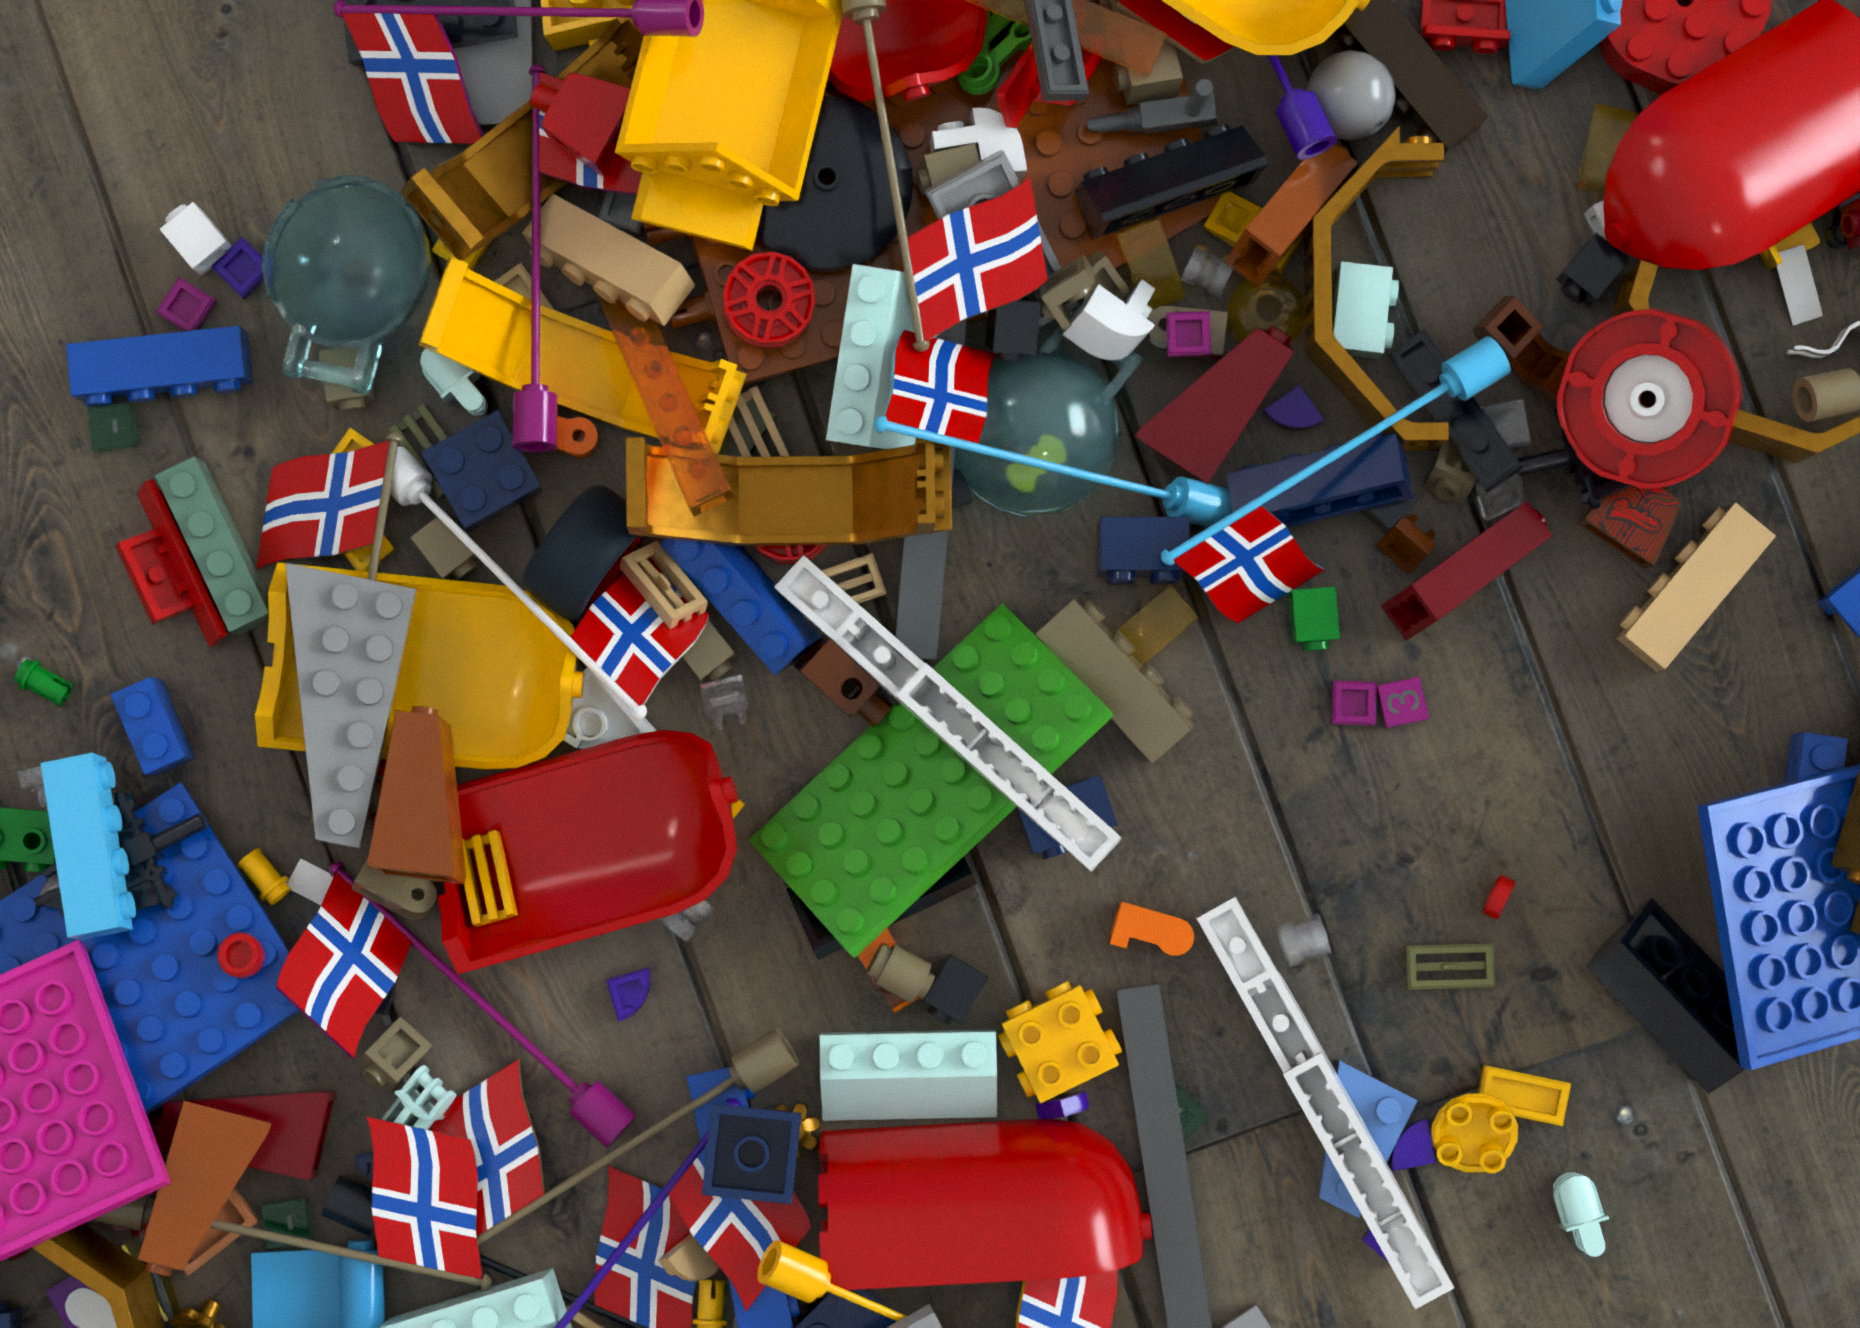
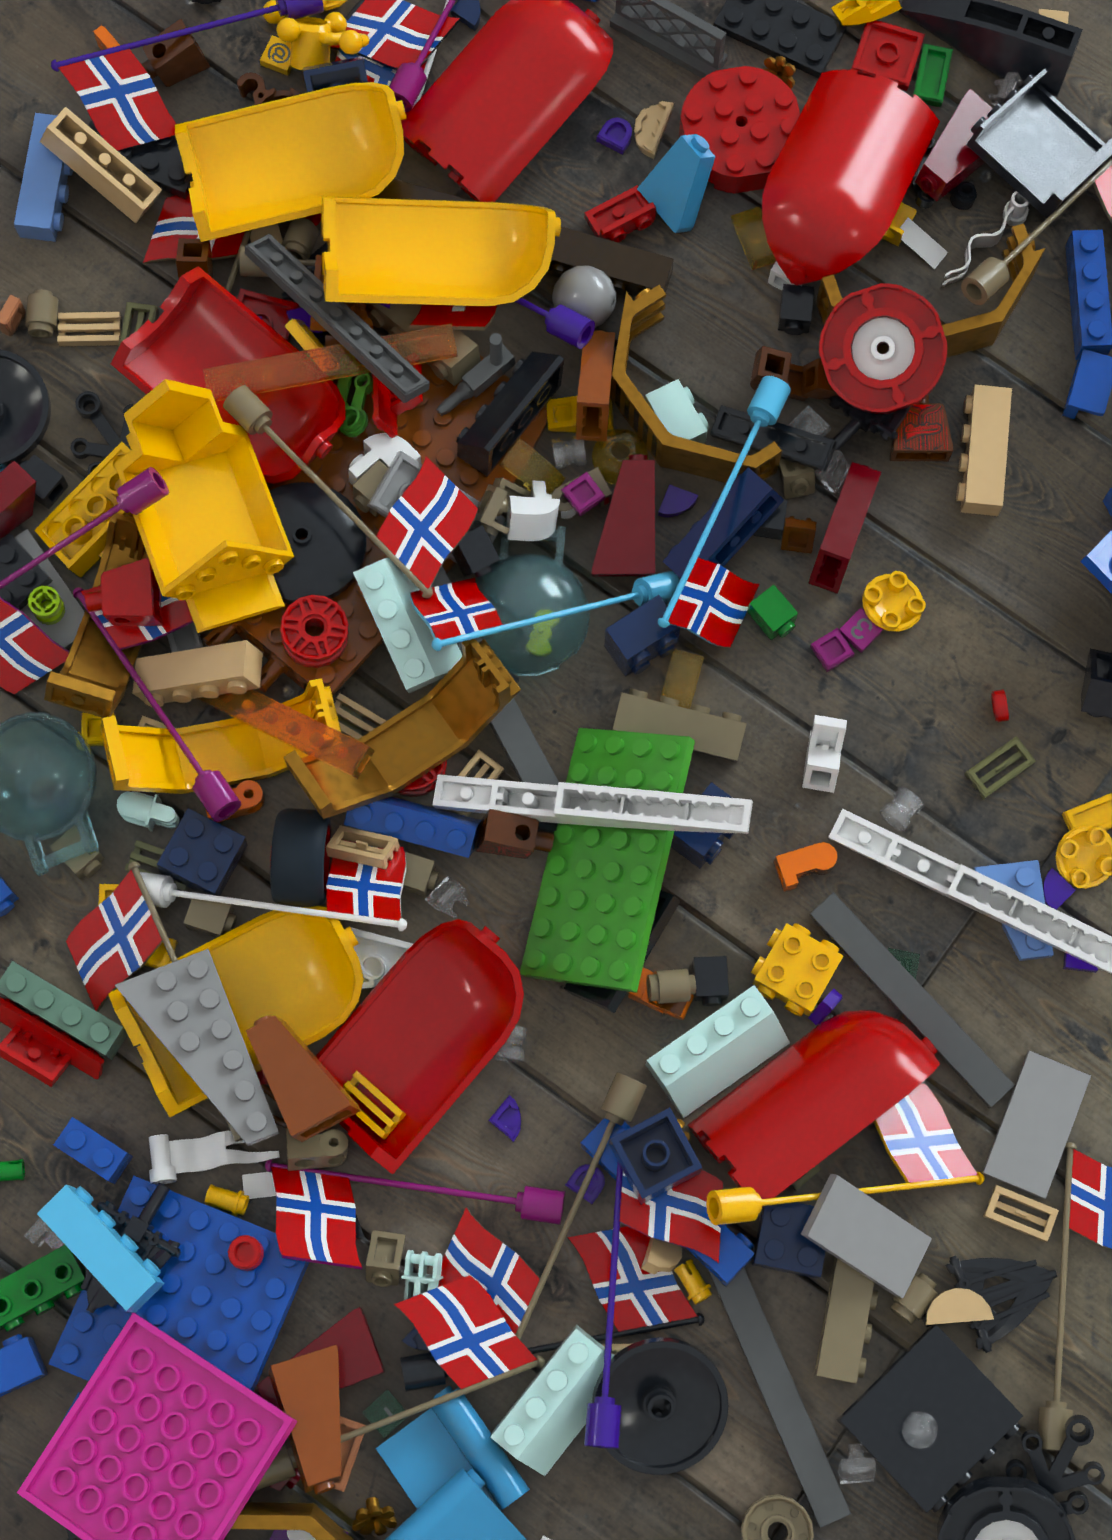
camera: 35 degrees left, 10 degrees down
(263, 804) = (197, 1155): none -> white flag
(497, 69) = (47, 612): none -> lime wheel
(660, 1110) = (595, 1186): none -> dark purple tile
(1256, 821) = (824, 753): none -> white brick
(1461, 694) = (893, 602): none -> yellow dish

